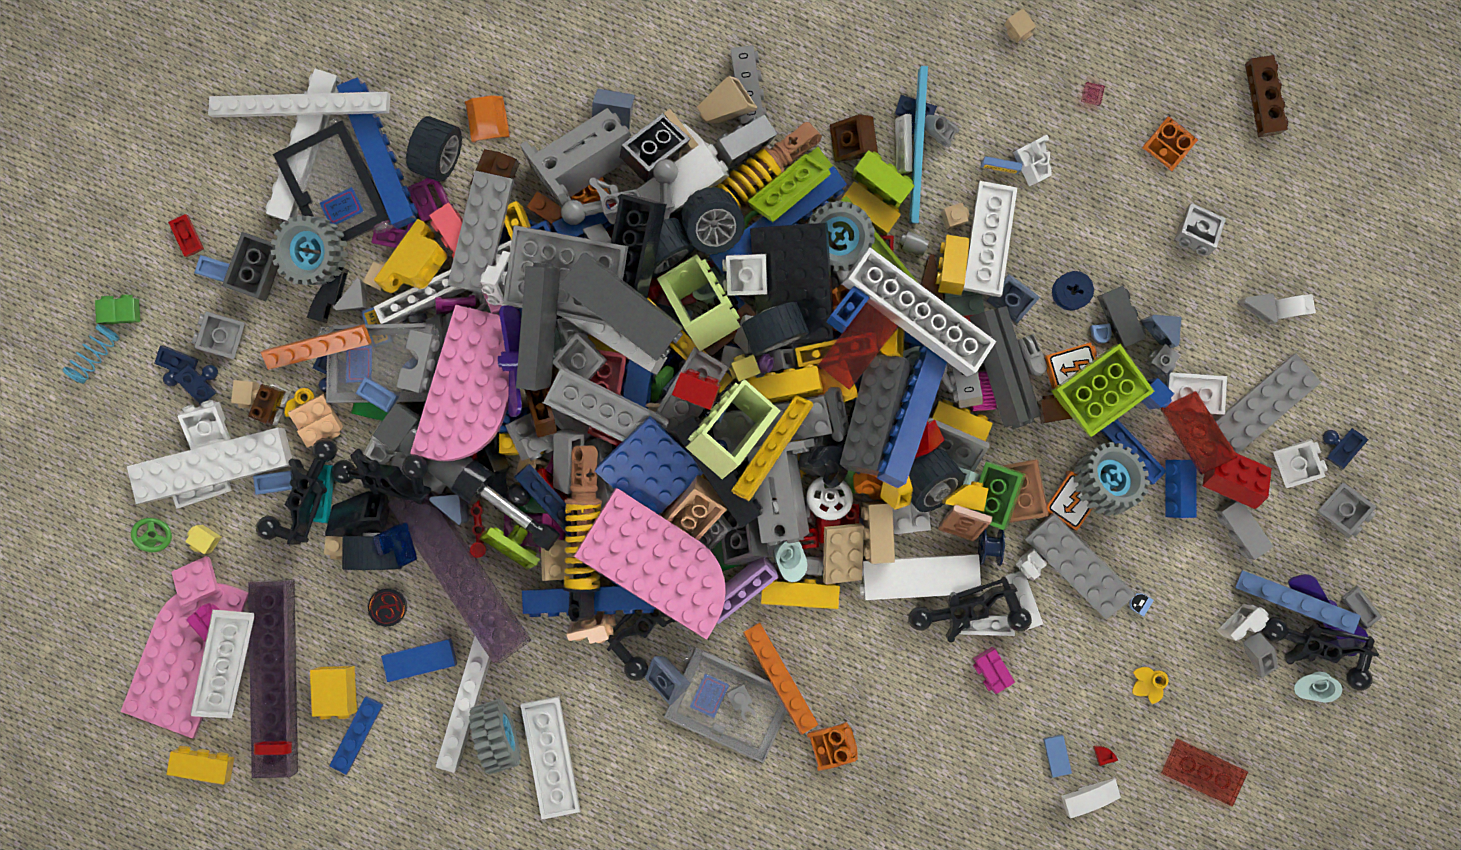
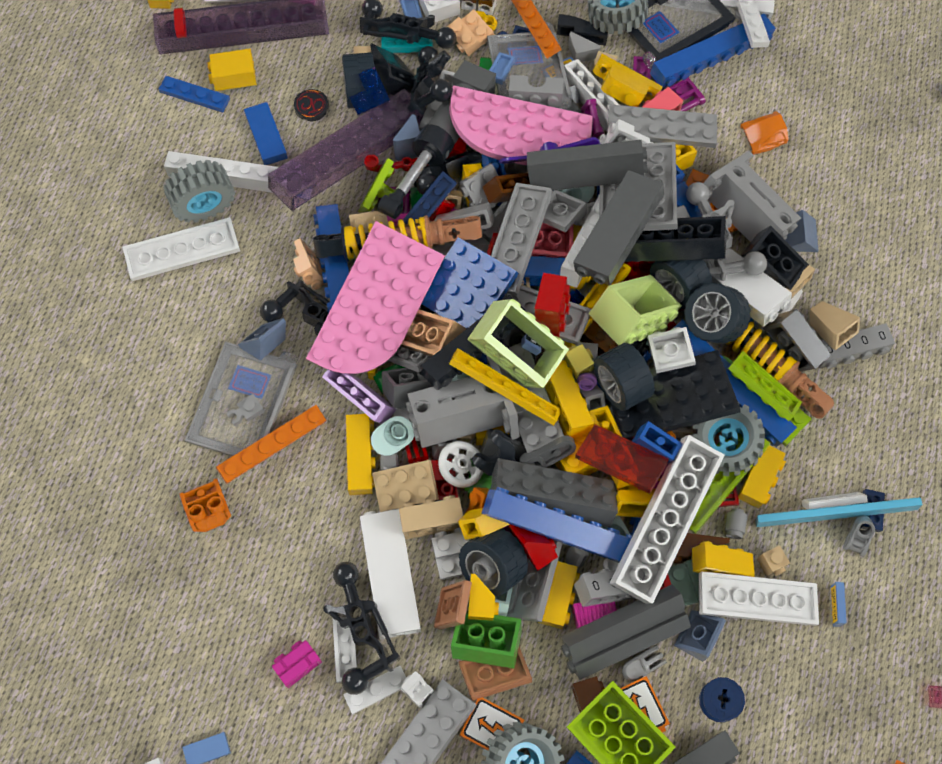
camera: 85 degrees right, 20 degrees down
(434, 148) = (728, 88): black wheel -> none
(497, 164) = (724, 149): reddish brown slope -> none
(853, 137) = (829, 452): reddish brown slope -> none
(882, 179) = (794, 480): lime brick -> none
(991, 546) = (430, 640): dark blue piece -> none
(1034, 160) = (852, 641): white slope -> none
(1101, 333) = (682, 740): light blue tile -> none

